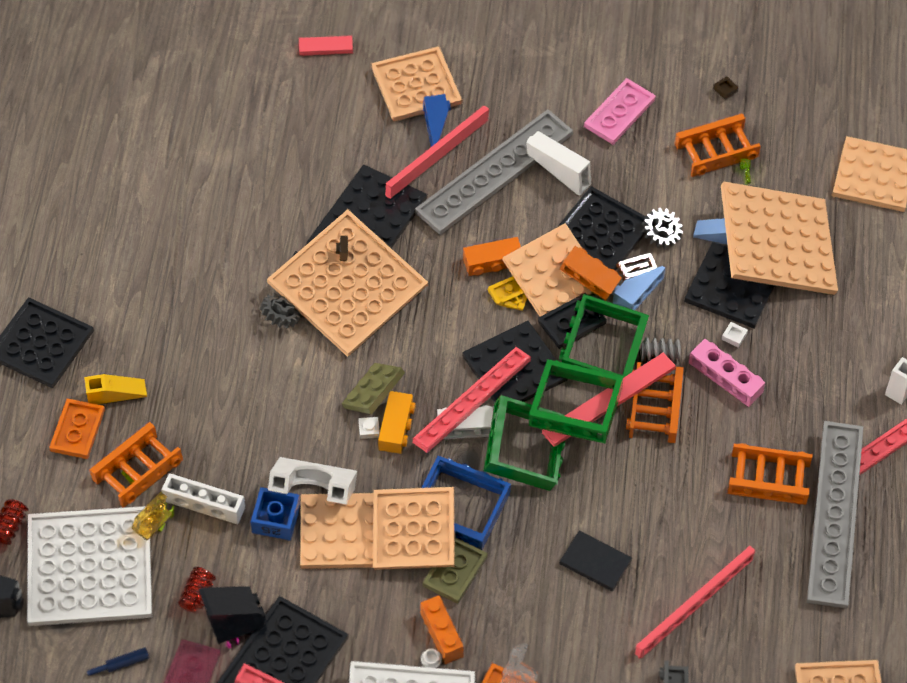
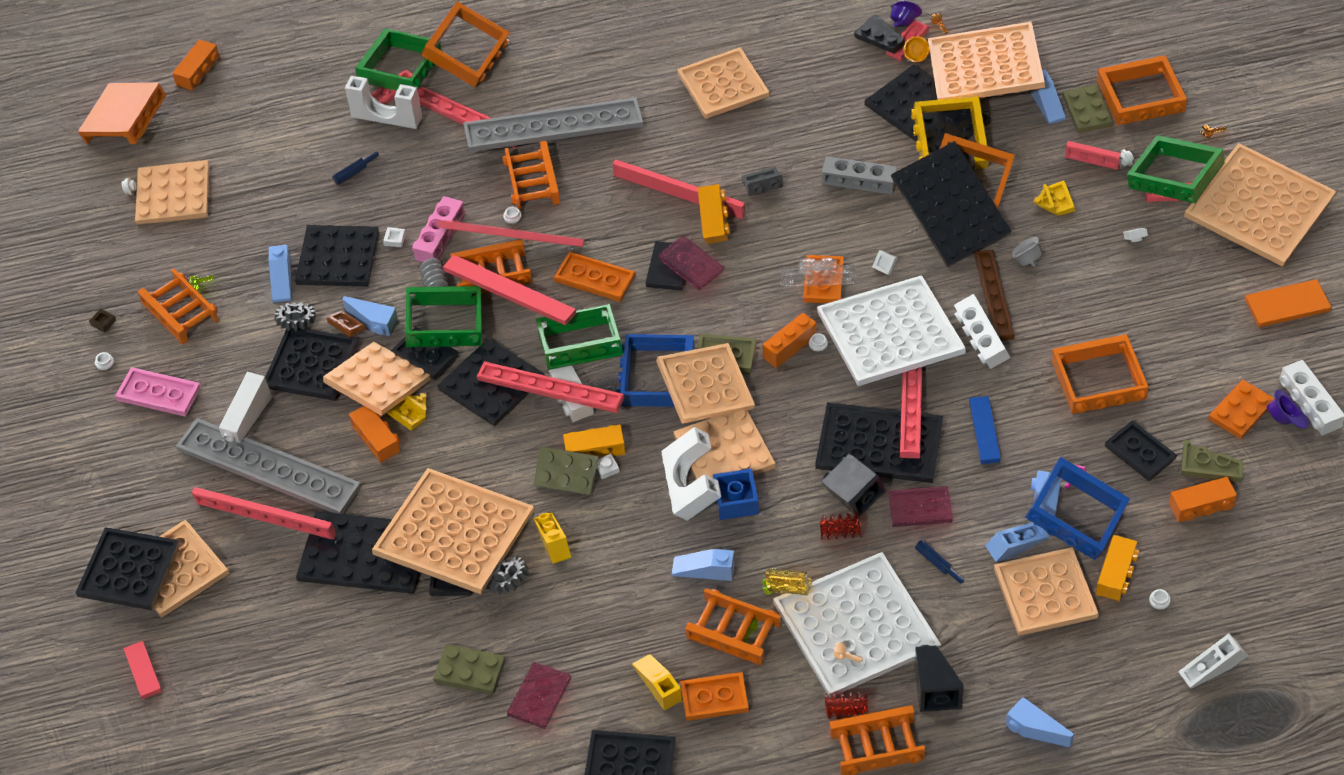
camera: 105 degrees left, 5 degrees down
(59, 533) = (840, 653): none -> light nougat hand
(153, 305) = (539, 695): none -> clear pink tile
(203, 498) = (746, 555): white brick -> none
(205, 263) = (469, 669): none -> olive plate
(216, 465) = (707, 564): none -> light blue slope
(306, 358) = (552, 537): none -> yellow slope
(342, 248) = (423, 532): dark brown plate -> none
(424, 47) = (128, 568): none -> black plate
(435, 113) = (223, 527): blue slope -> none
(573, 426) = (531, 327): green window -> none
(585, 577) = (691, 262): none -> clear pink tile
(590, 272) = (373, 343): orange brick -> none
(610, 491) = (594, 276): none -> orange tile
(636, 613) = (713, 214): none -> light orange brick
(675, 80) = (104, 361): none -> white plate
(688, 426) = (510, 233): none -> coral tile
(723, 443) = (512, 215): none -> white plate
(778, 238) = (280, 226): light nougat plate -> none
(846, 325) = (353, 168): none -> dark blue axle
(893, 138) = (129, 186): none -> white plate

